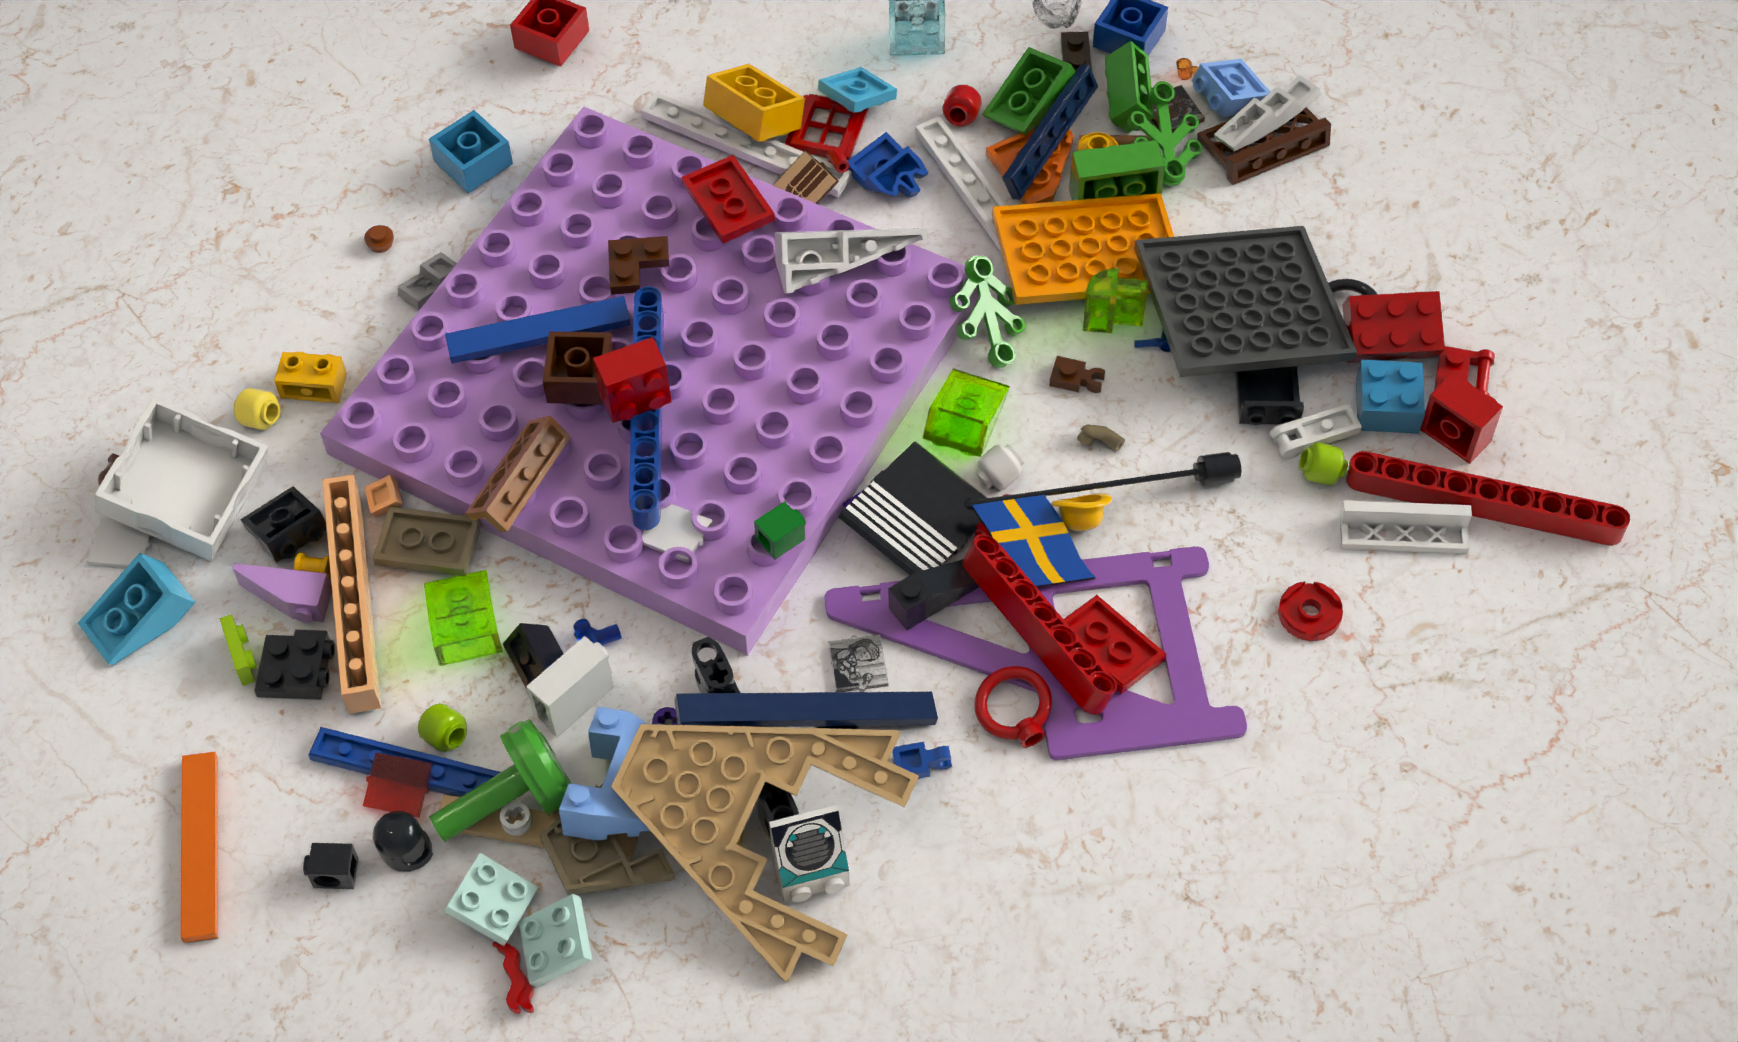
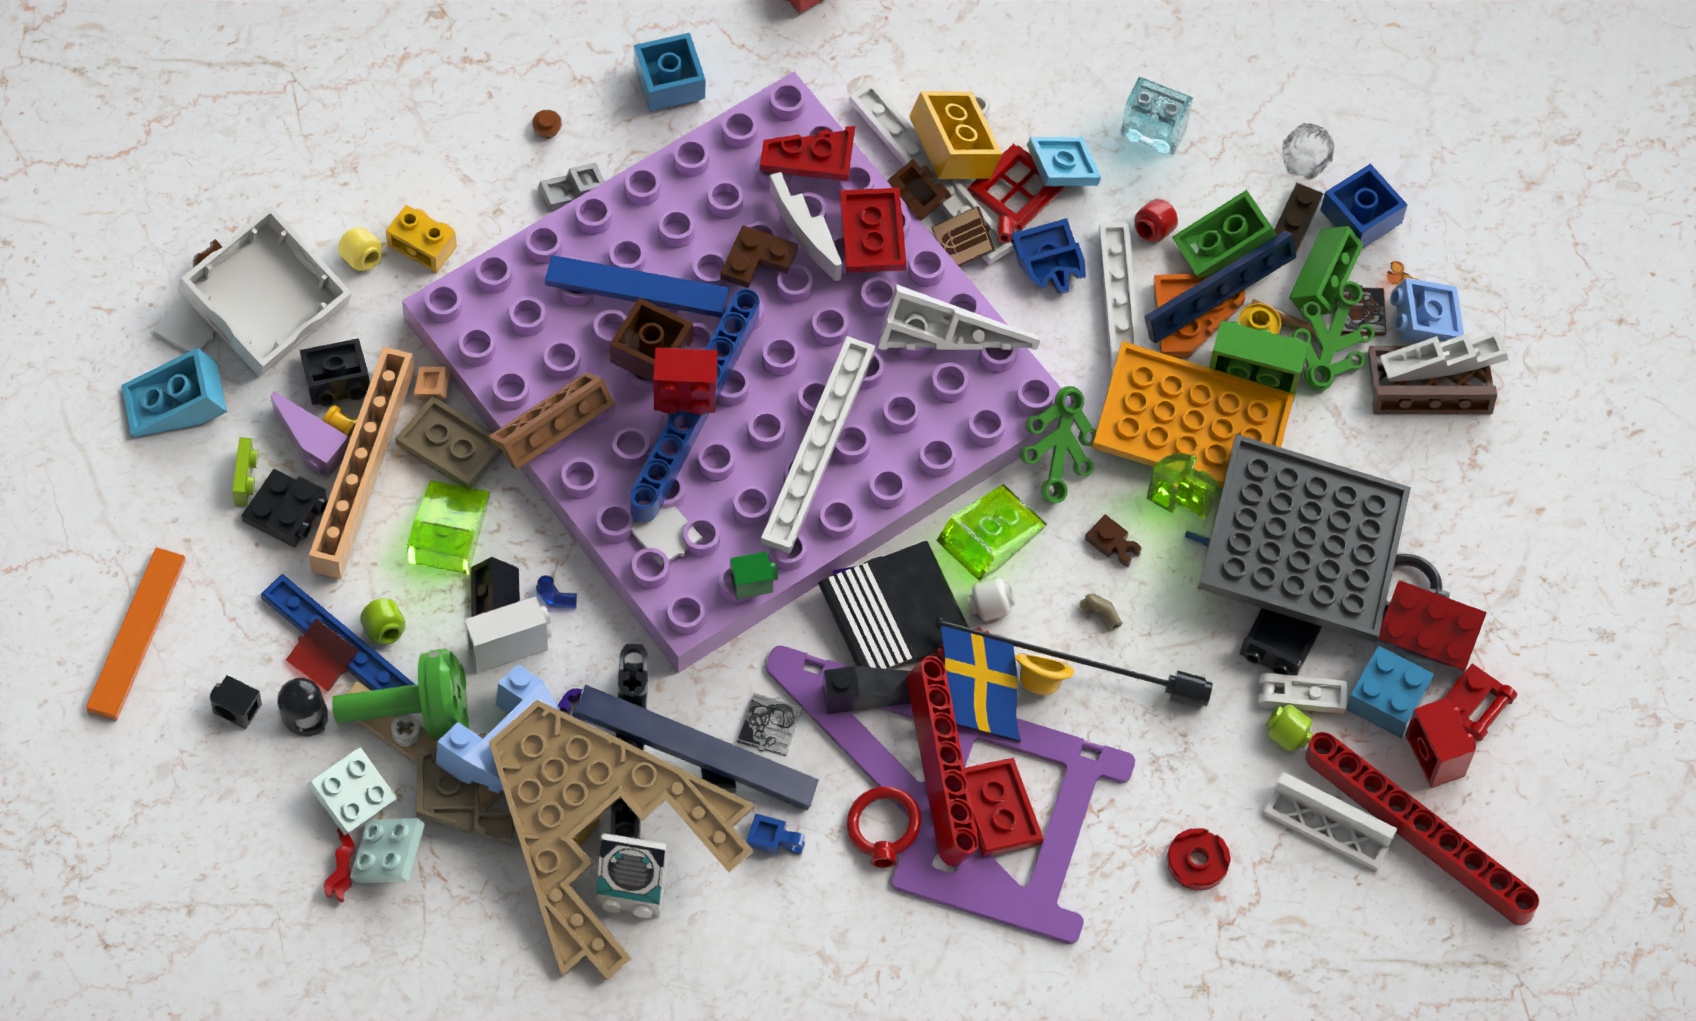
camera: 20 degrees right, 5 degrees up
(645, 159) = (814, 156): none -> red wing
(672, 221) = (808, 231): none -> white slope
(753, 158) = (919, 189): none -> reddish brown cylinder
(778, 396) = (818, 445): none -> white plate

